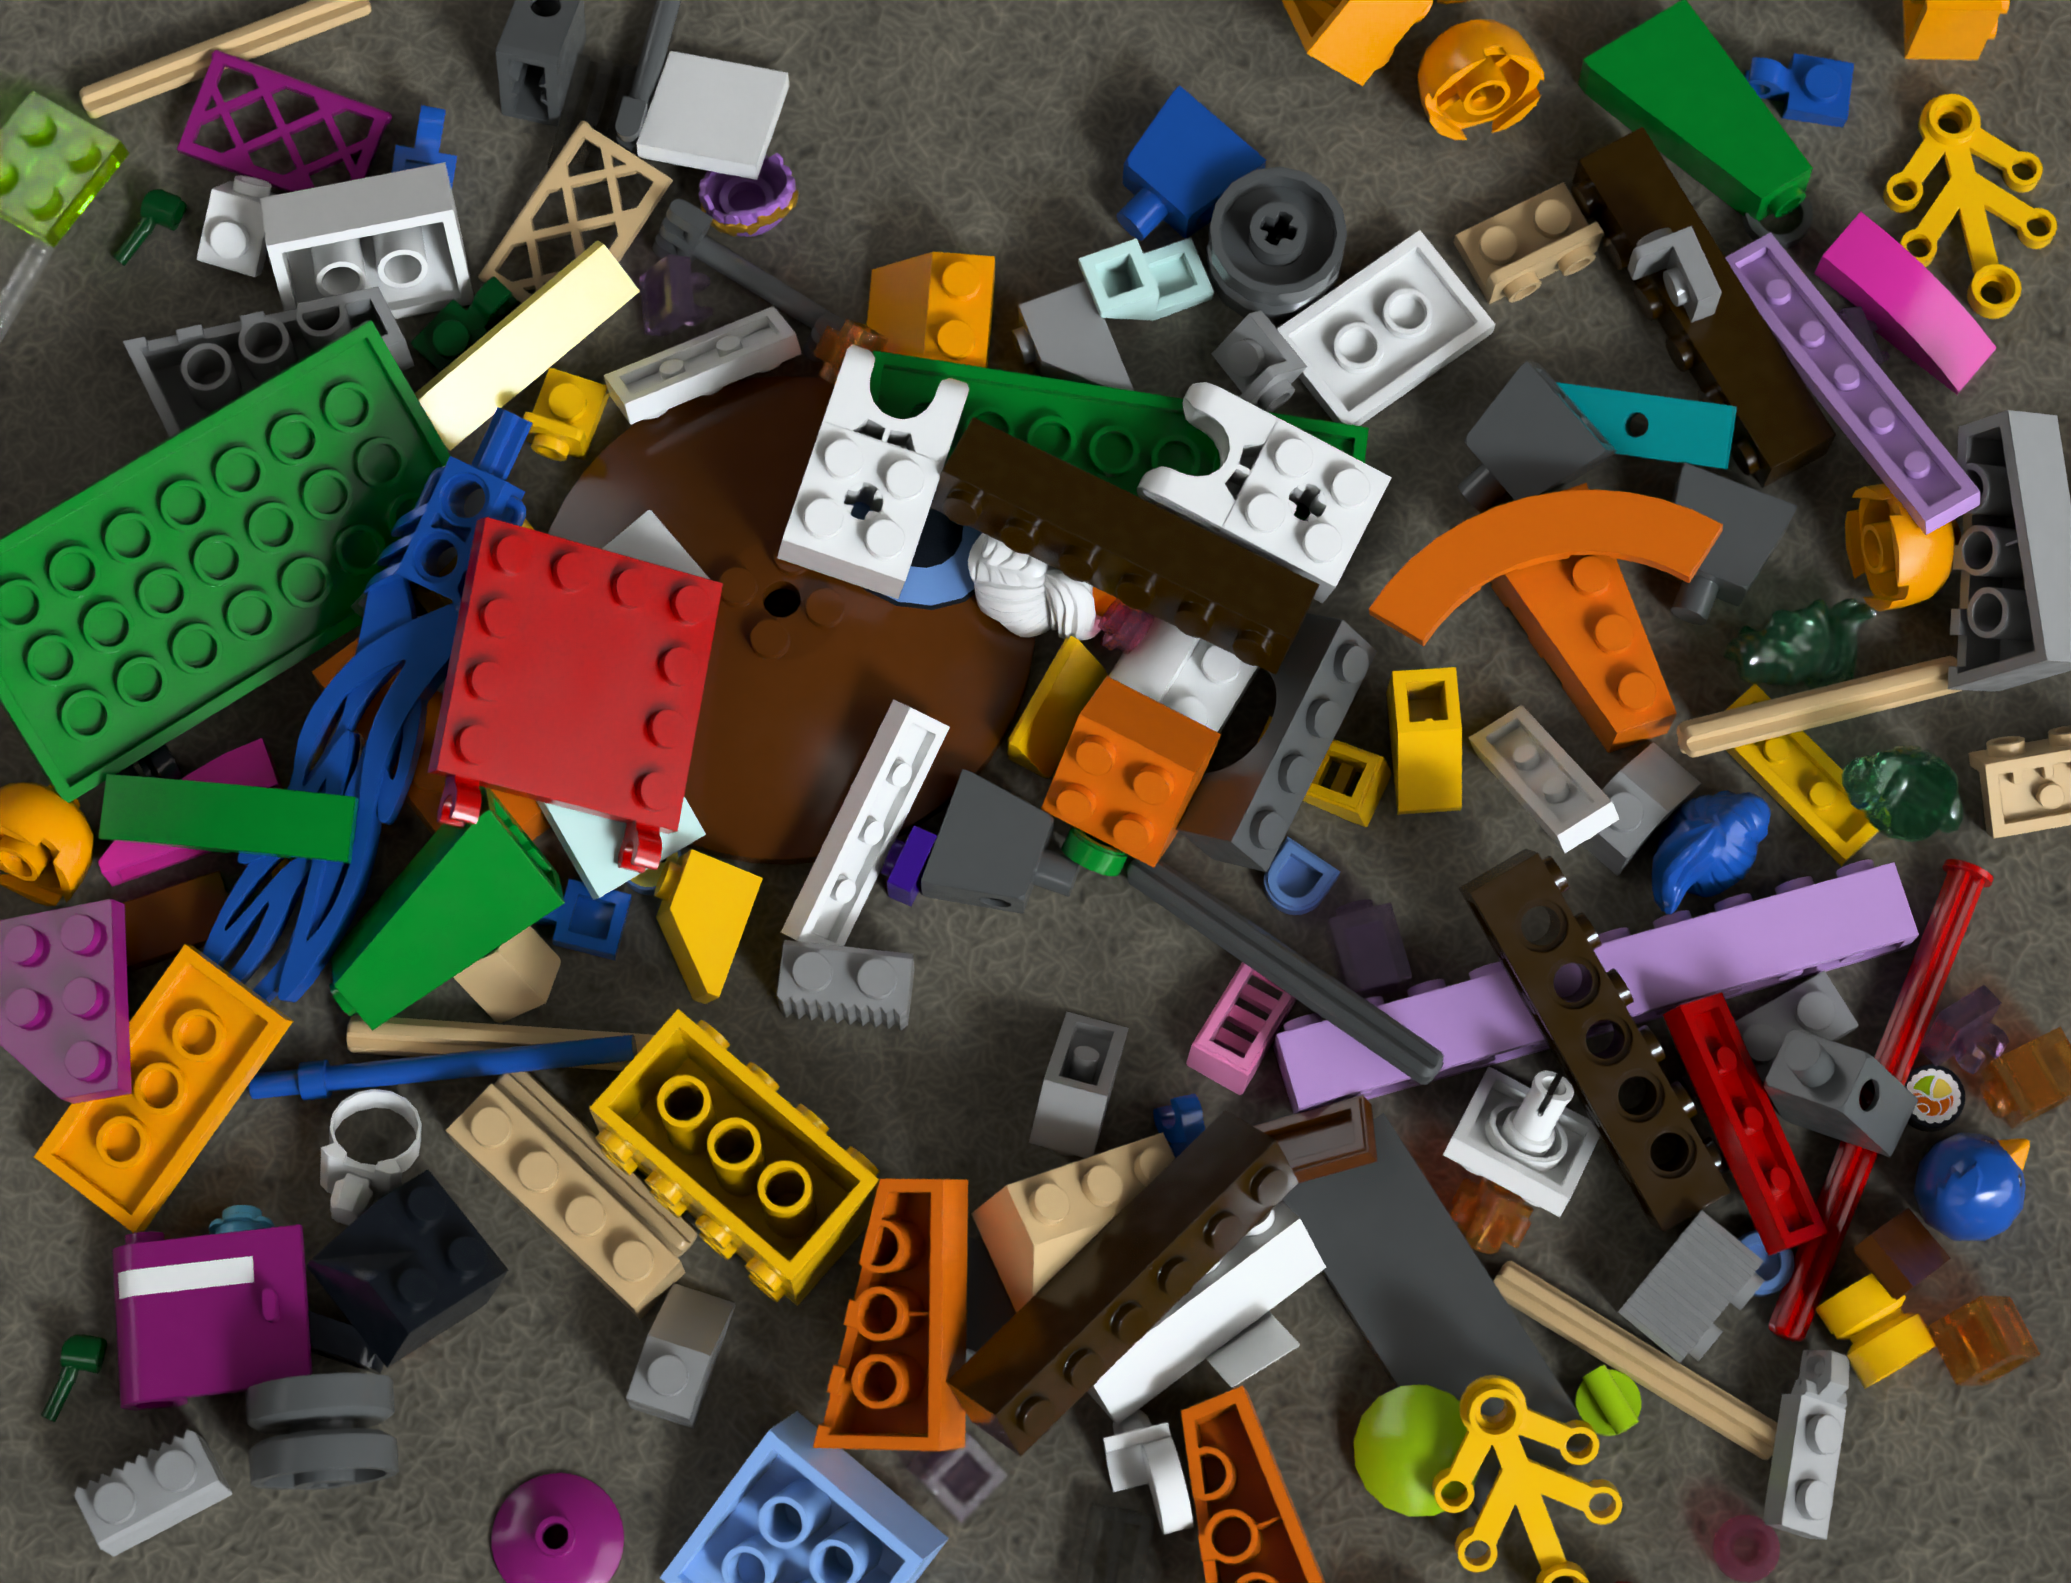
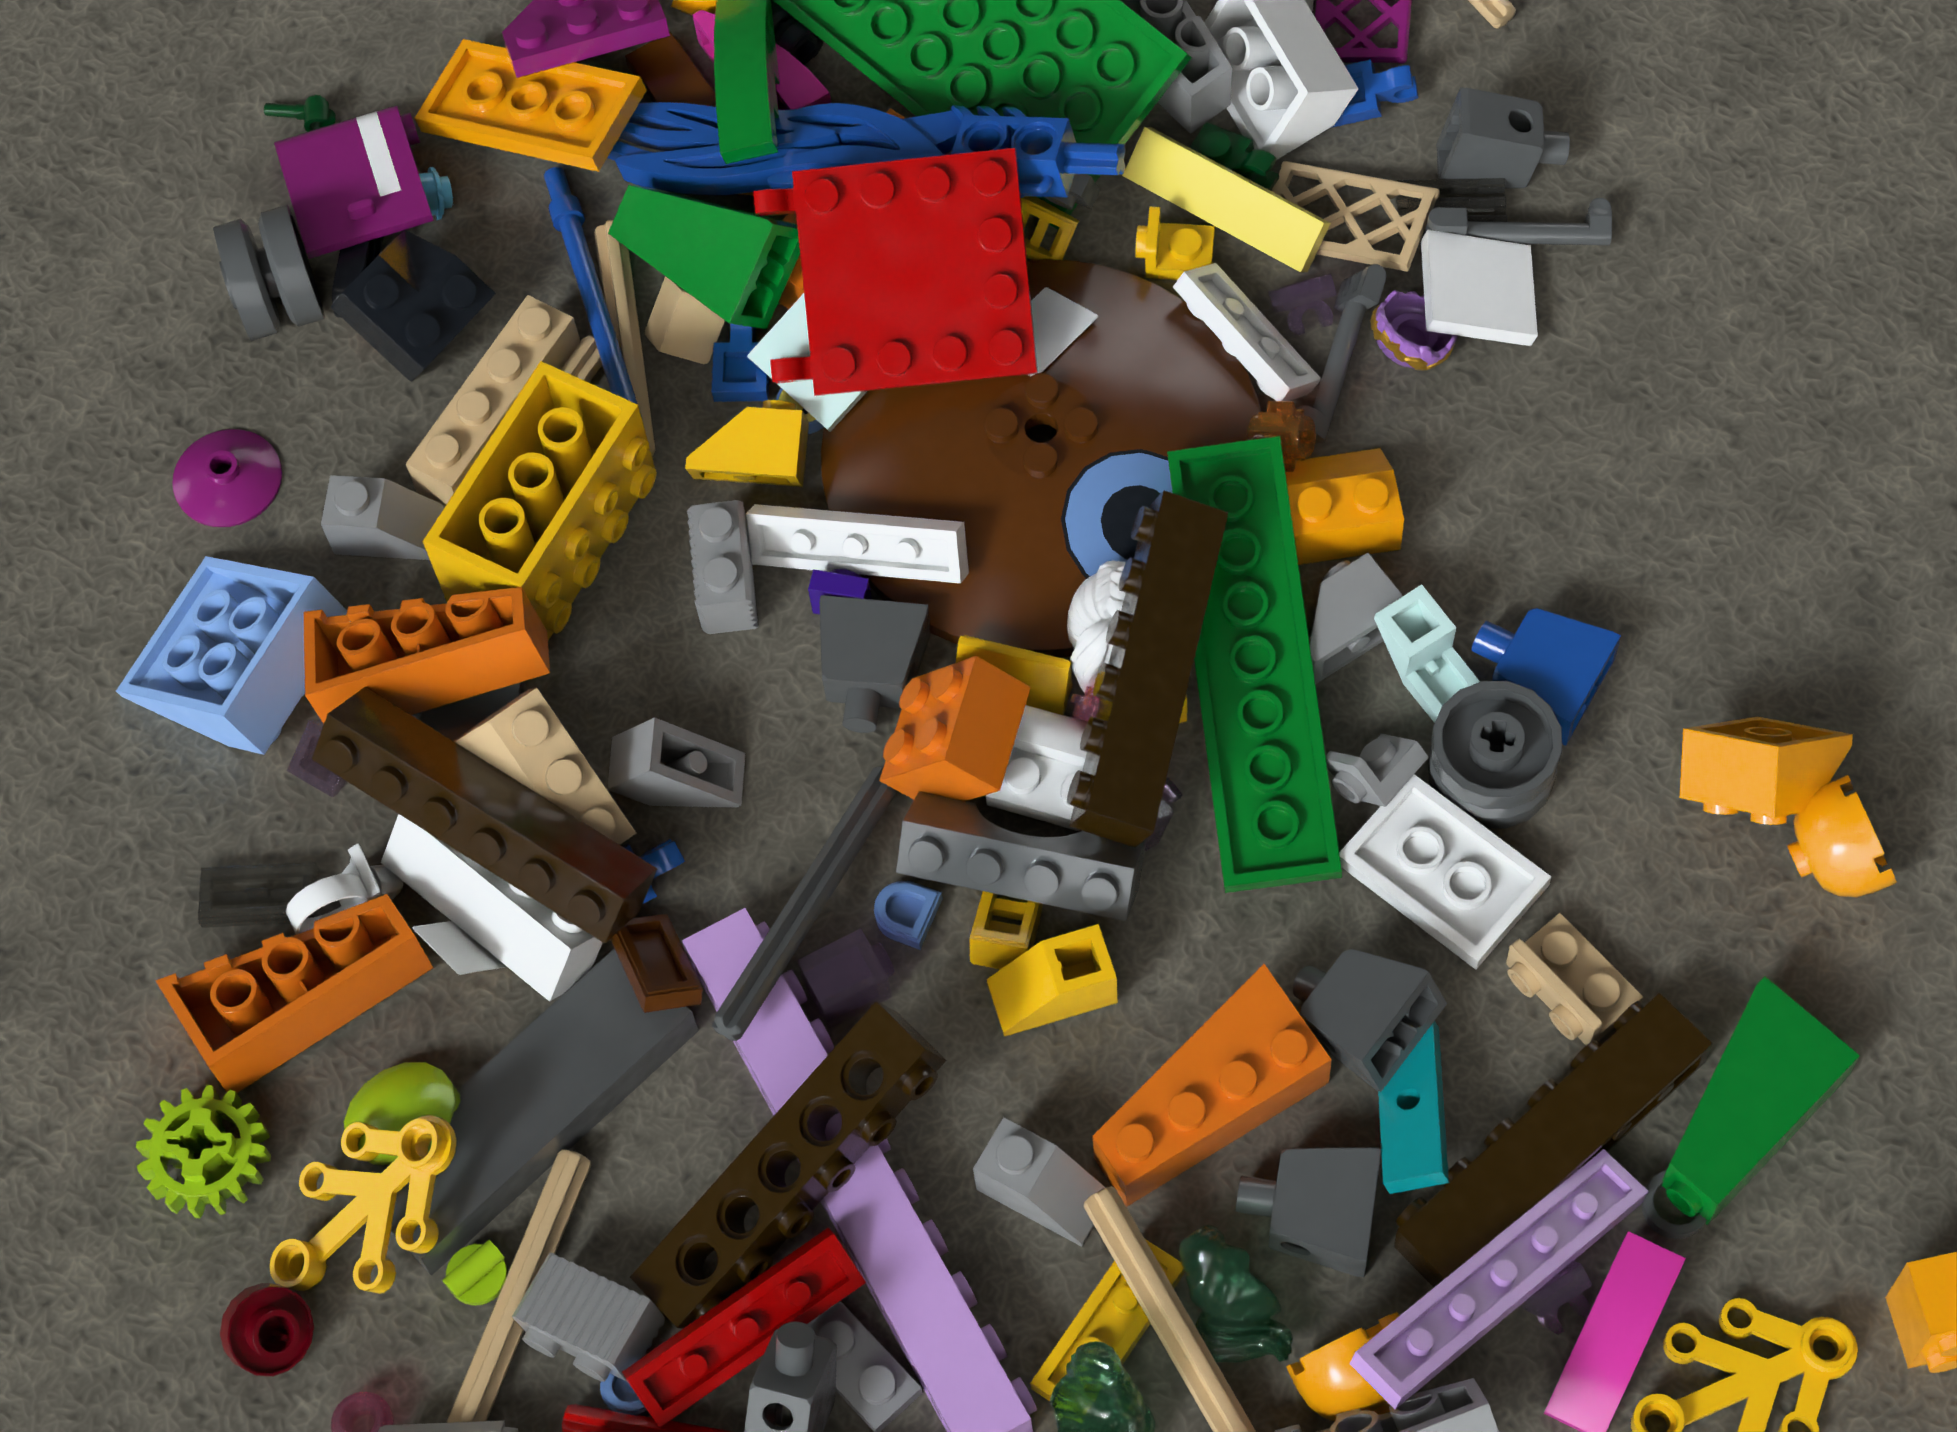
camera: 85 degrees right, 10 degrees down
(152, 1493) = (209, 177): light grey brick -> none
(357, 1184) = (482, 257): white piece -> none
(875, 462) = (1166, 443): white brick -> none
(1093, 853) = (877, 730): green tile -> none
(1227, 1056) = (735, 863): bright pink slope -> none
(1260, 479) = (1242, 771): white brick -> none
(1478, 76) = (1721, 882): light orange cylinder -> none
(1490, 1215) = (625, 1130): clear orange gear -> none
(1525, 1138) = (688, 1133): white plate -> none
(1538, 532) = (1263, 1016): orange tile -> none
(1544, 778) = (1033, 1082): white plate -> none
(1688, 273) = (1562, 1103): light grey bracket -> none
(1708, 846) = (1015, 1254): blue hair -> none
(1811, 87) = (1817, 1210): blue plate -> none

